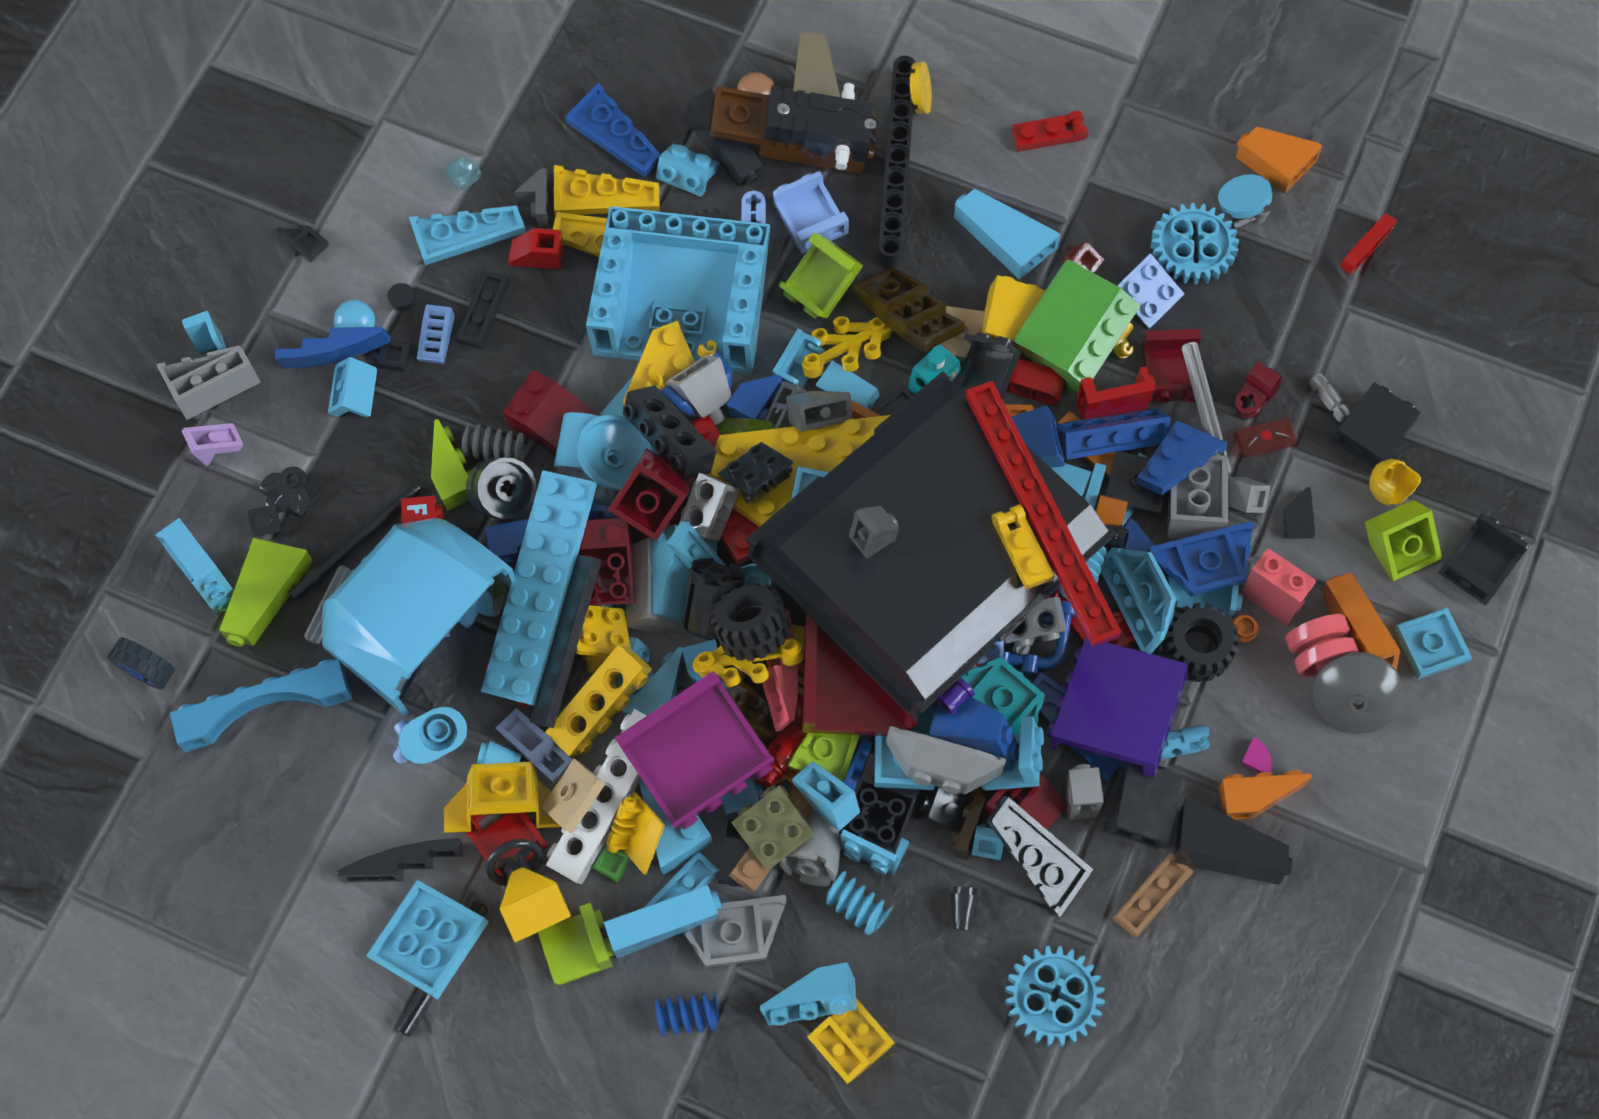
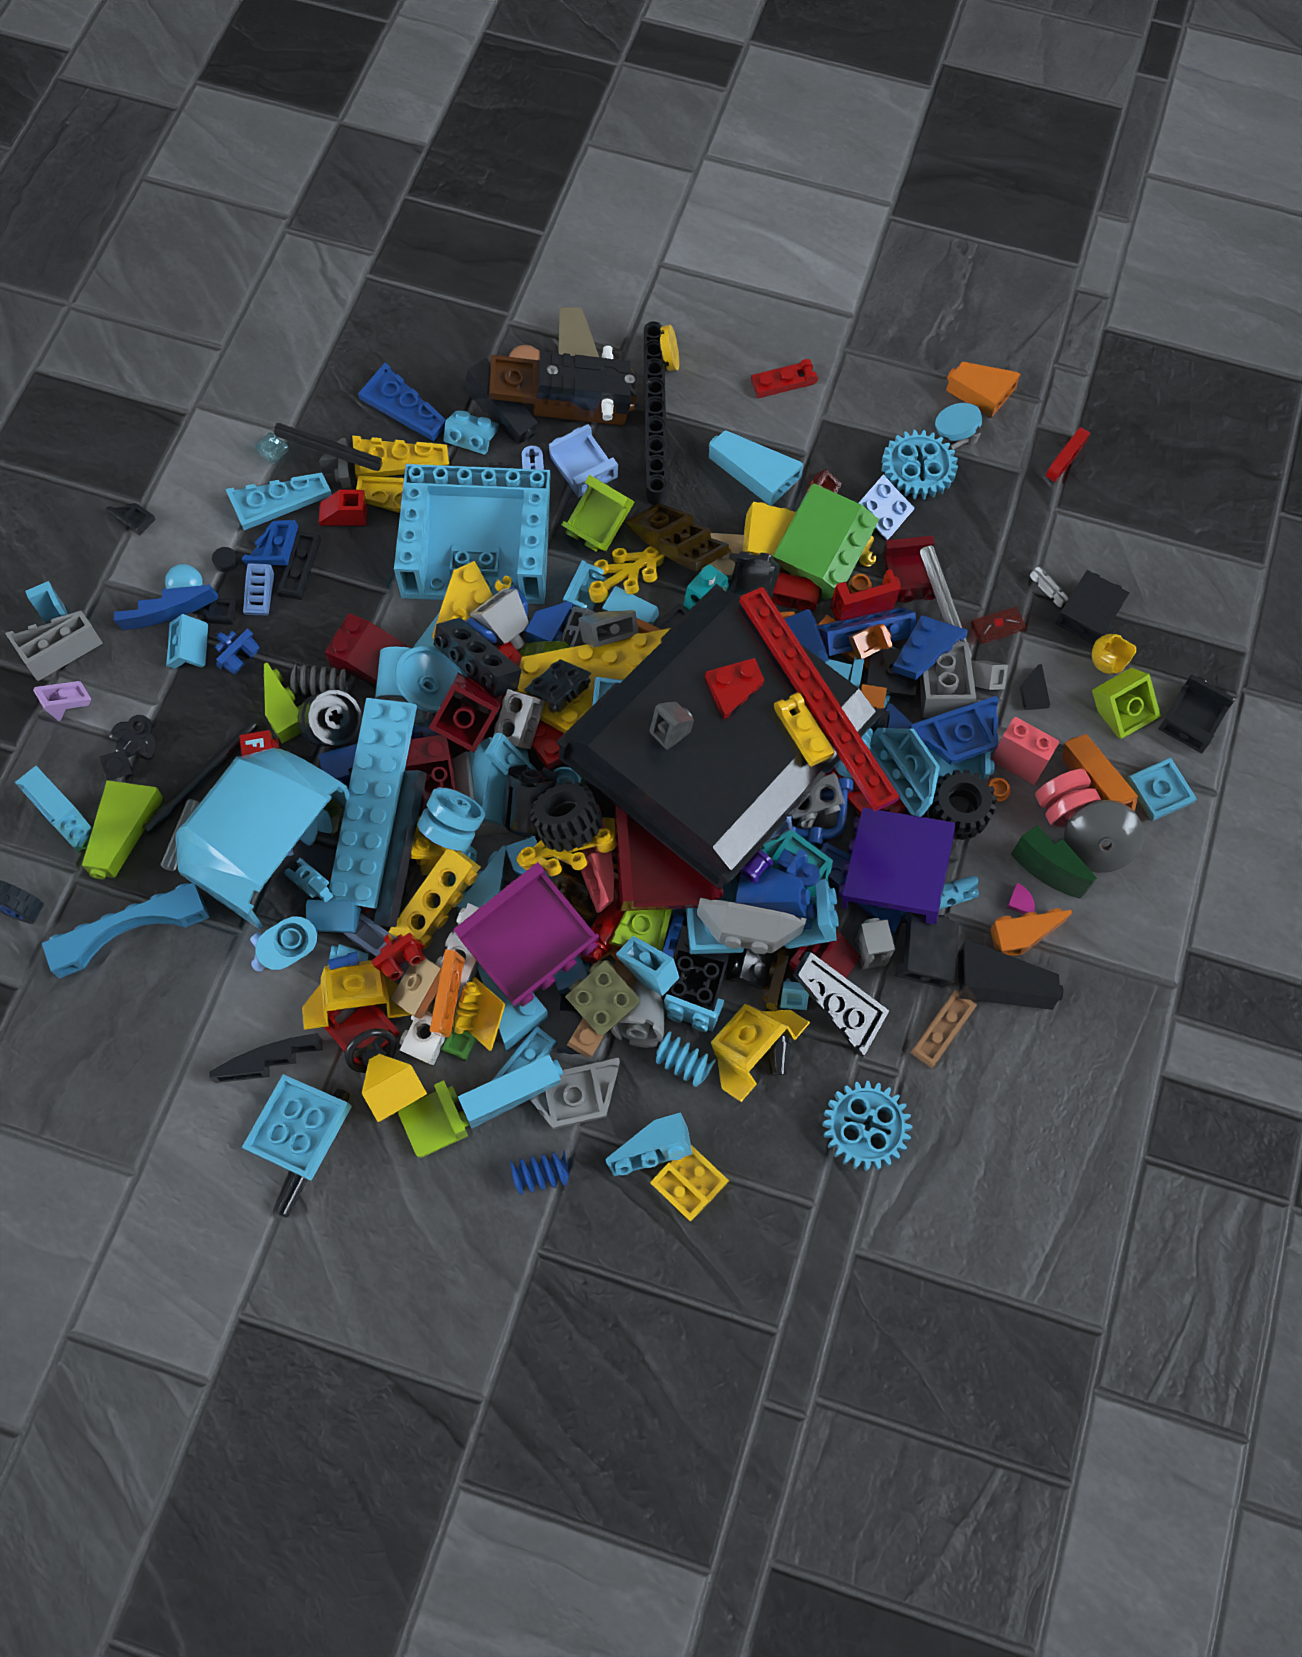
camera: 10 degrees left, 0 degrees up
(396, 410) = (243, 643): none -> blue hips
(457, 285) = (274, 545): none -> blue wing
(464, 668) = (310, 881): none -> medium azure hinge
(486, 709) = (333, 915): none -> dark azure slope
(501, 760) = (349, 959): none -> blue piece
(525, 177) = (327, 446): none -> black axle
(552, 756) = (396, 952): none -> red hips
(602, 808) = (447, 993): none -> orange tile
(623, 613) = (451, 819): none -> medium azure wheel
(929, 888) = (747, 1040): none -> yellow piece
(949, 489) = (734, 684): none -> red wing
(1003, 700) = (798, 866): none -> blue hips
(1110, 378) = (859, 583): none -> orange plate
(1114, 446) = (870, 640): none -> orange bracket
(1260, 387) = (988, 582): dark red piece -> none
(1296, 718) = (1053, 863): none -> dark green slope

